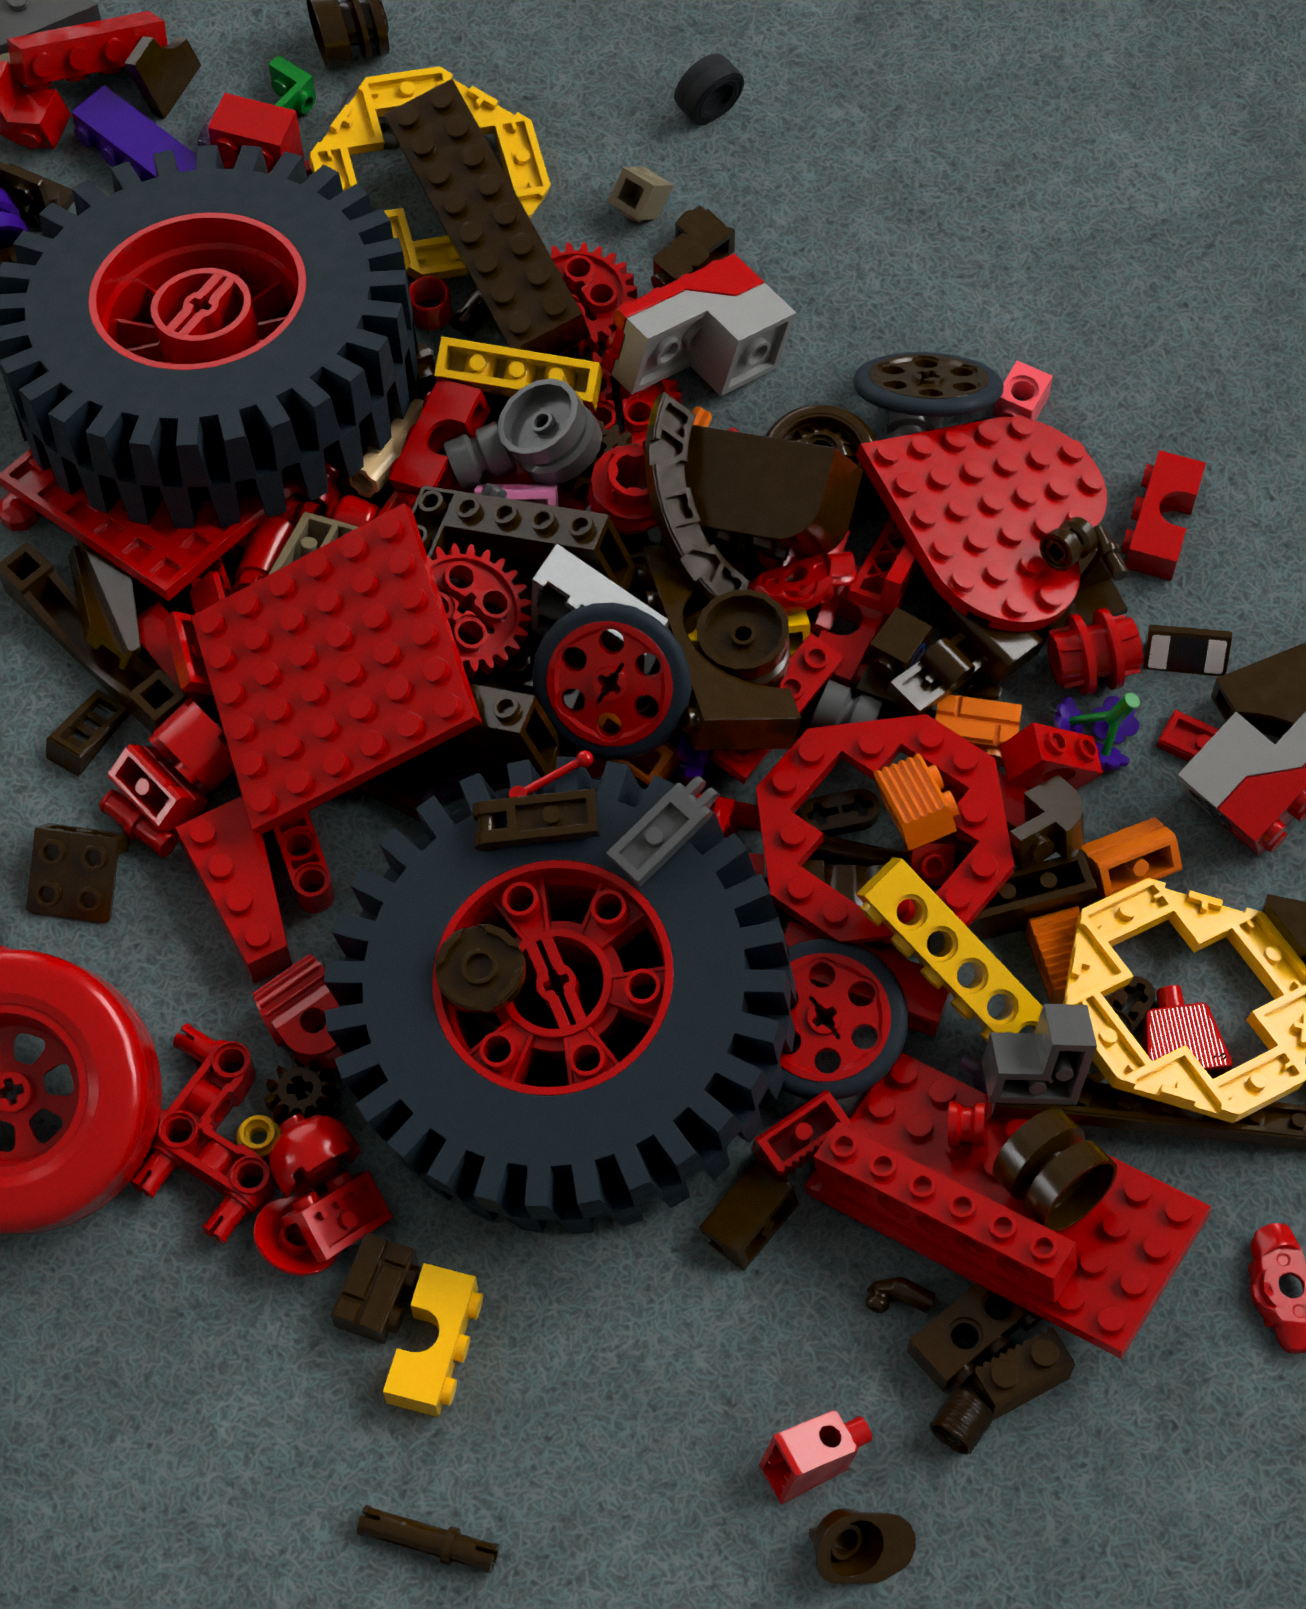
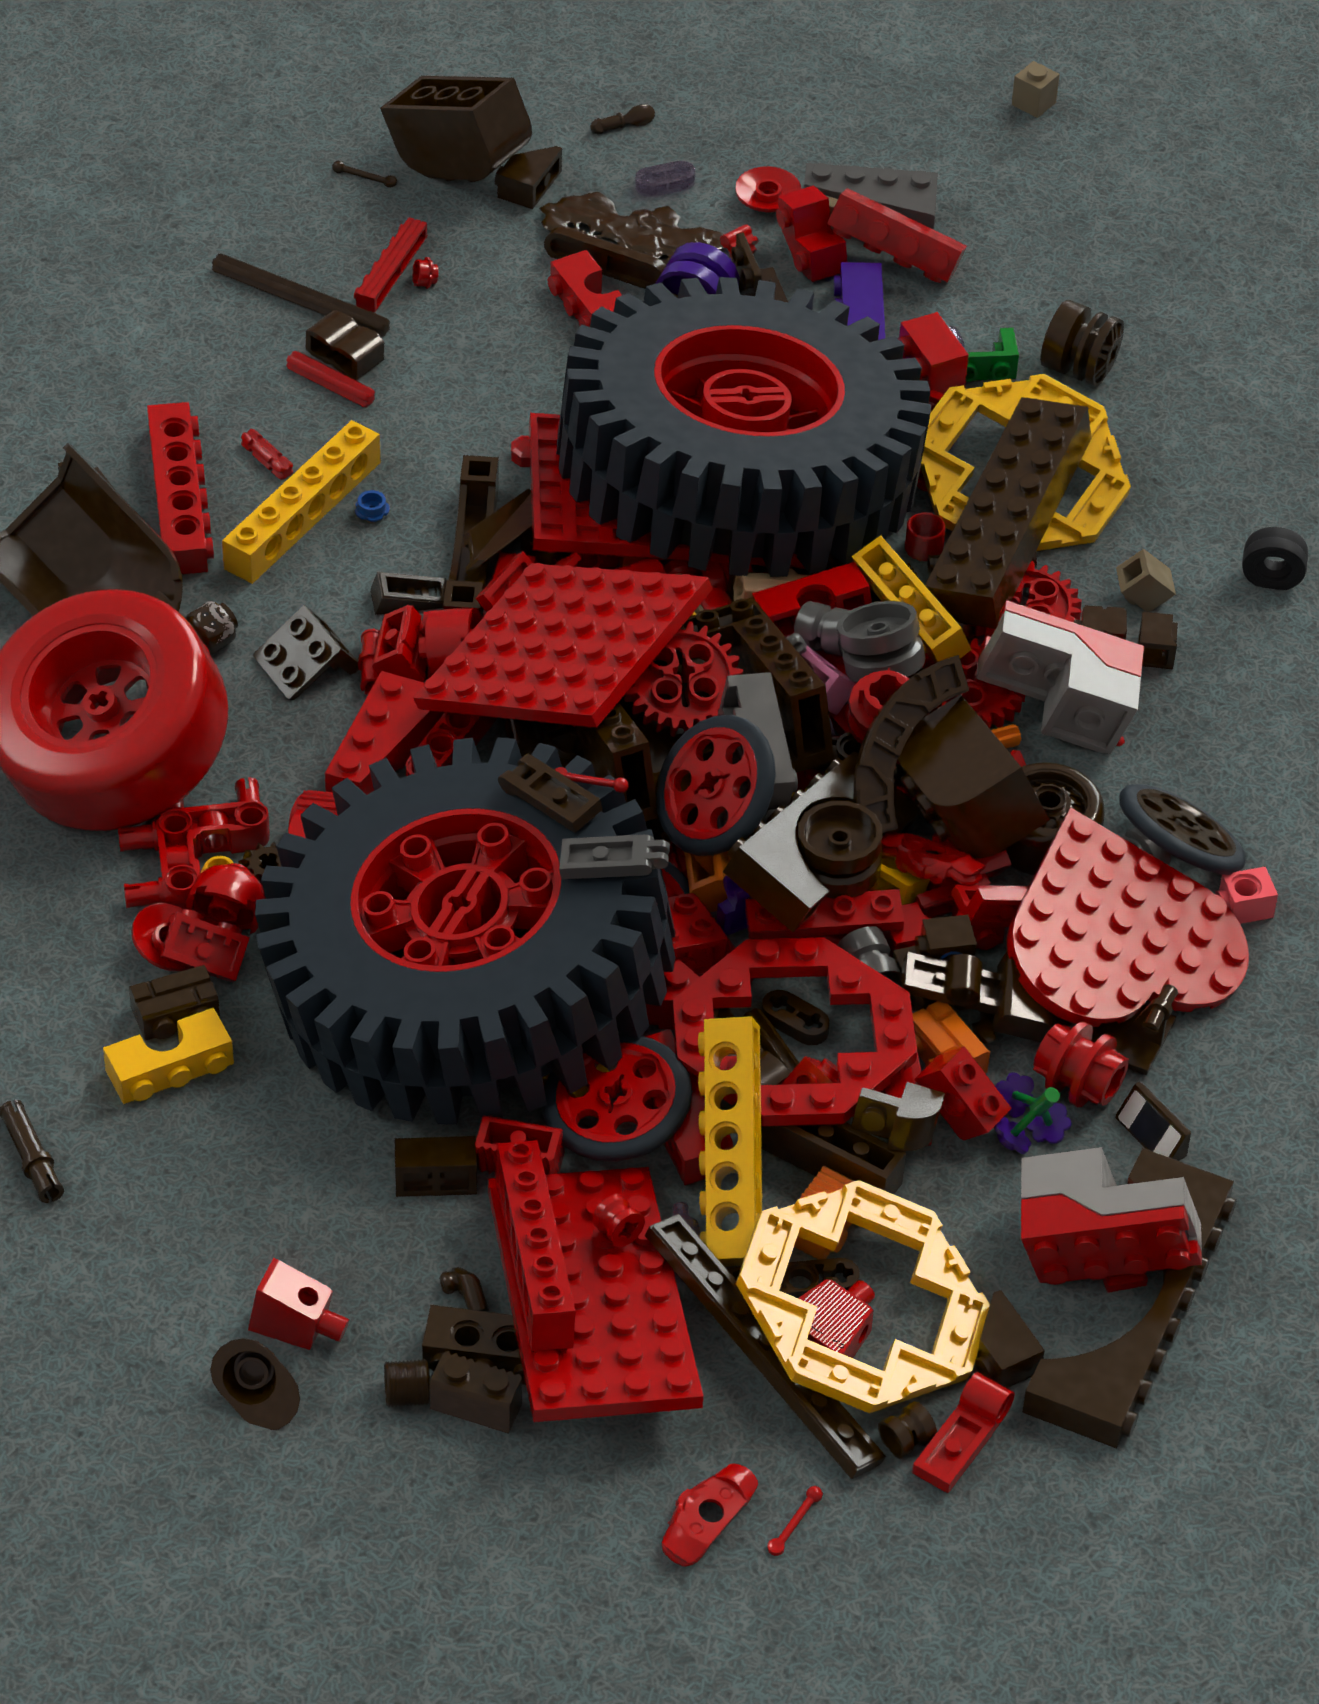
camera: 45 degrees right, 15 degrees down
(162, 71) = (927, 285): dark brown tile -> none
(480, 969) = (420, 849): dark brown tile -> none
(916, 801) = (827, 1024): orange brick -> none
(1041, 1065) = (705, 1223): dark grey brick -> none
(1054, 1170) = (623, 1273): dark brown wheel -> none
(1068, 543) = (1135, 977): dark brown wheel -> none
(1132, 856) = (952, 1197): orange brick -> none
(1156, 543) = (1275, 1025): red arch -> none

